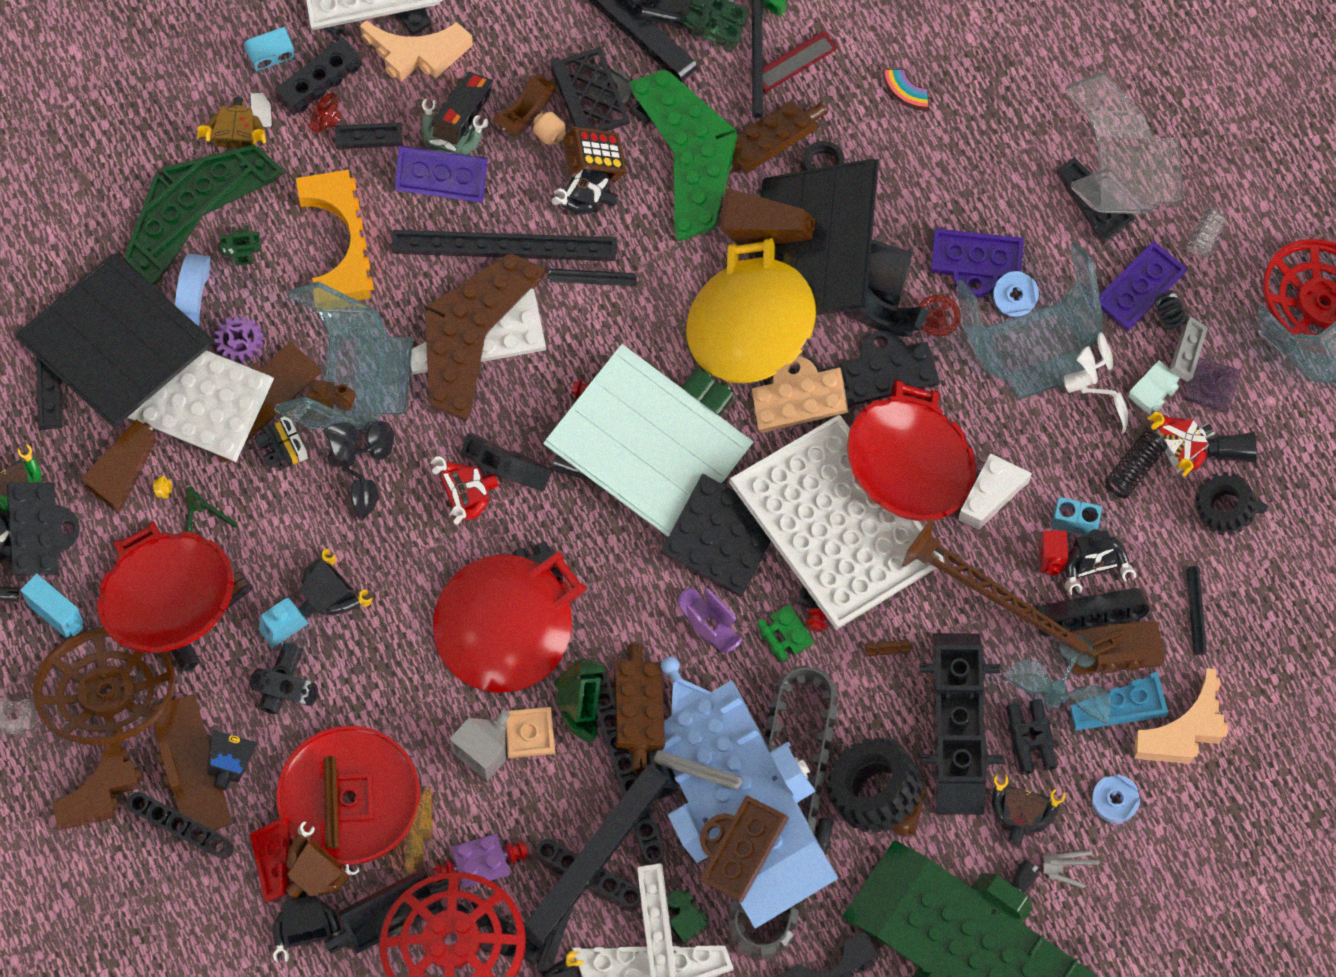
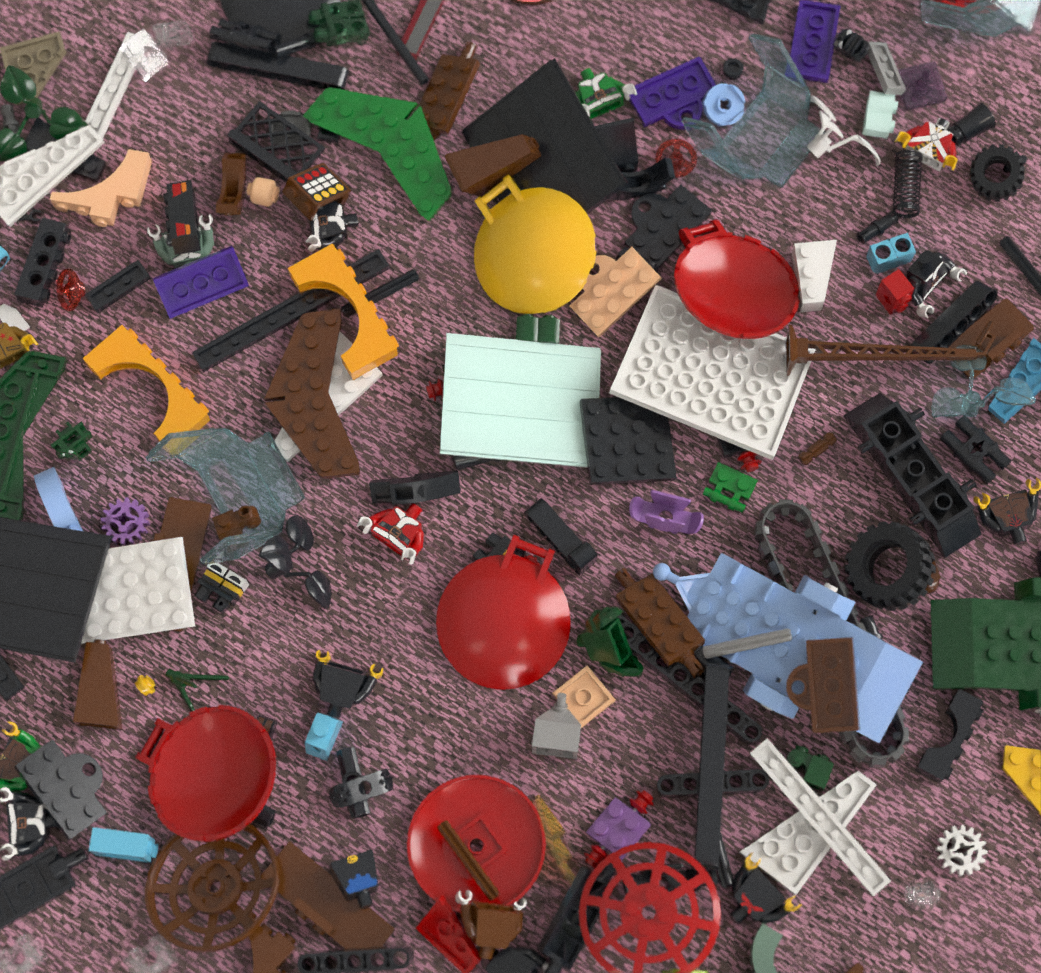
camera: 30 degrees left, 5 degrees up
(551, 315) = (328, 271): none -> light orange arch
(604, 582) = (574, 551): none -> black beam
(822, 147) = (497, 74): black tyre -> none
(907, 218) = (602, 93): none -> torso
(1048, 268) = (732, 68): none -> black tile
(1081, 487) = (877, 227): none -> black pin

